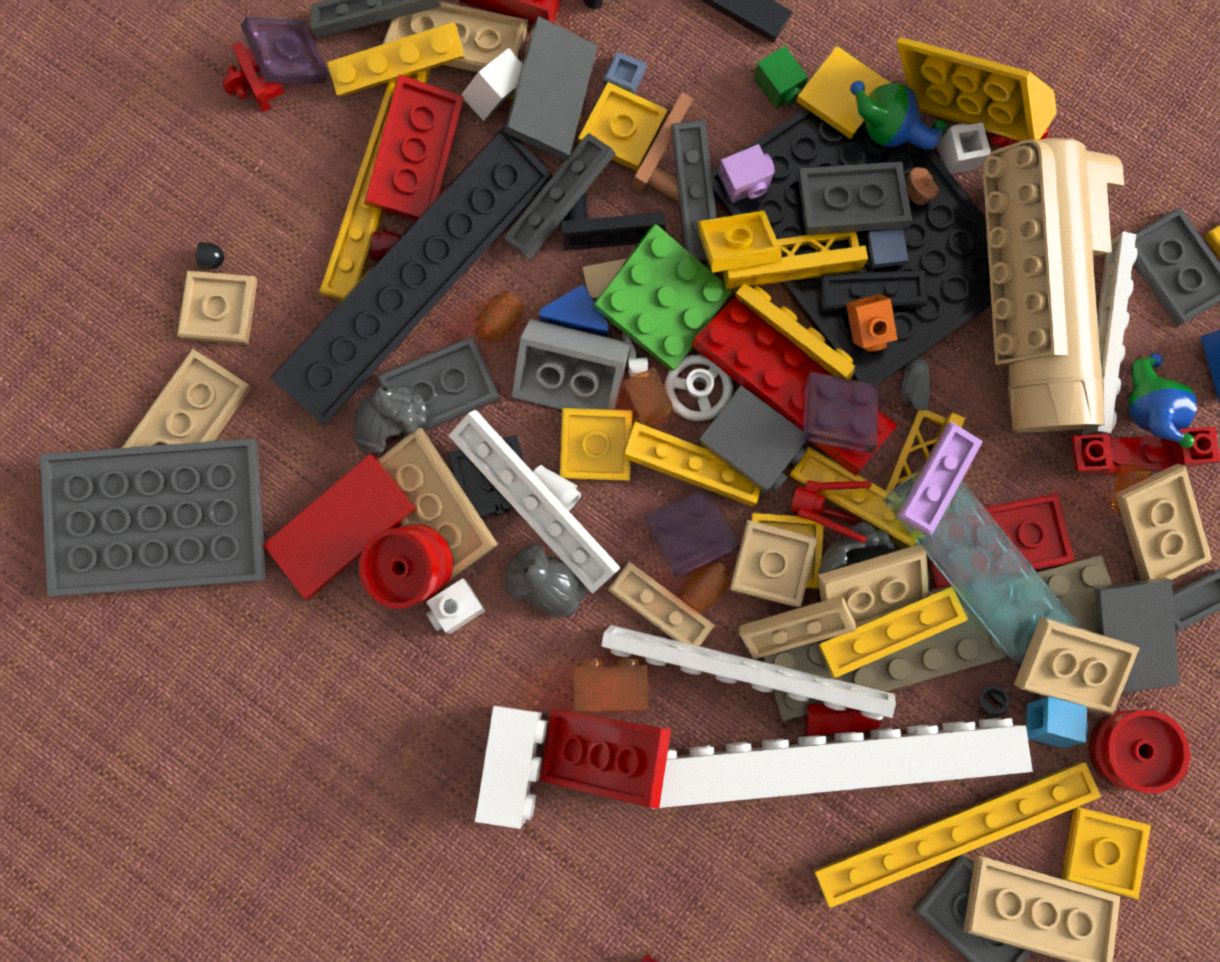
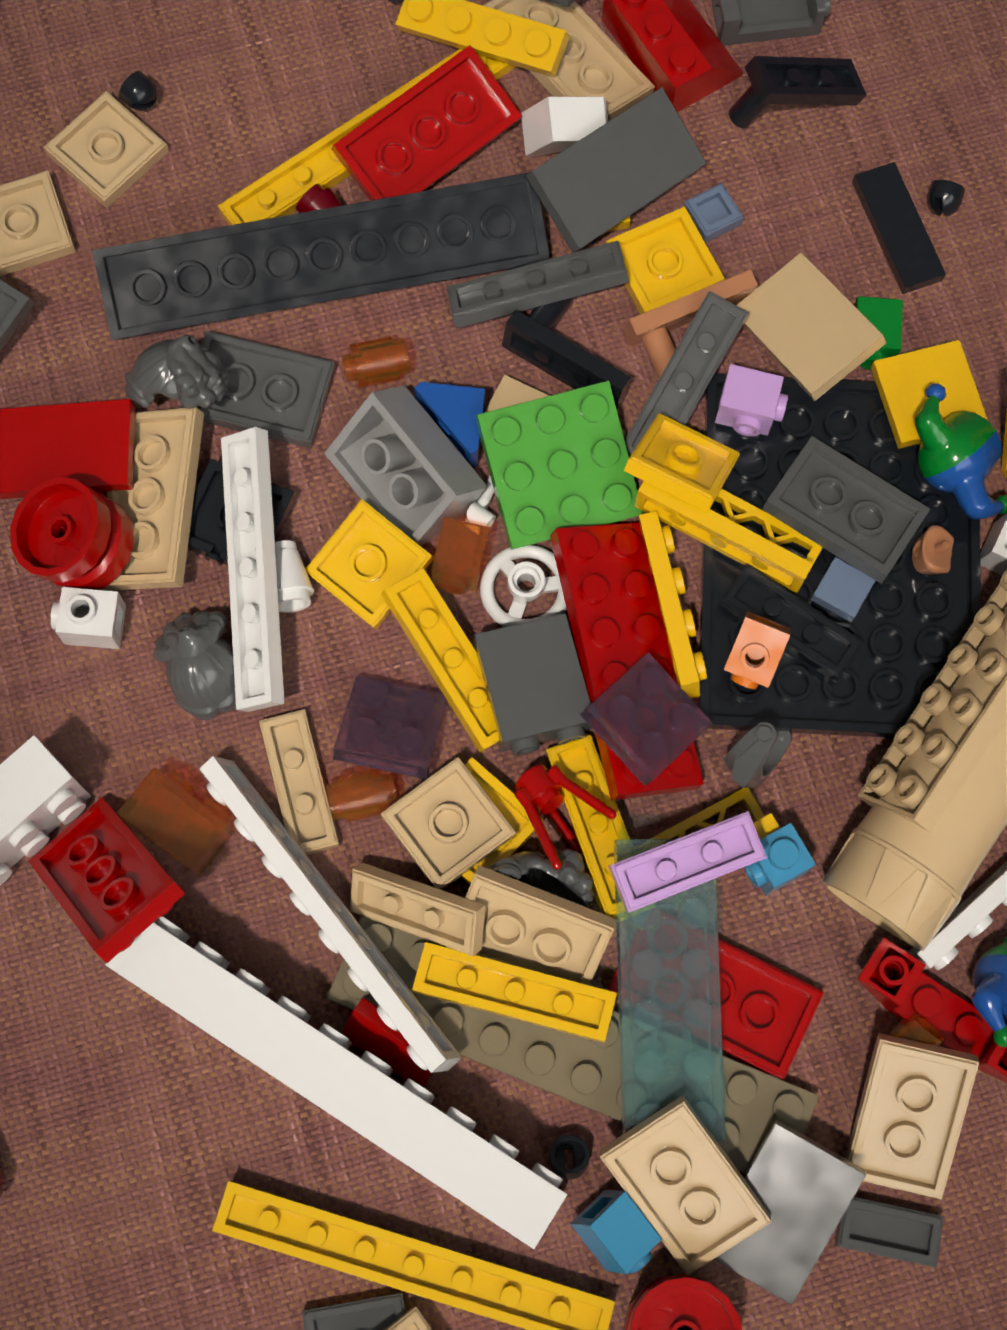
camera: 35 degrees right, 5 degrees down
(743, 101) = (809, 326): none -> tan tile
(985, 430) = (785, 861): none -> dark azure brick

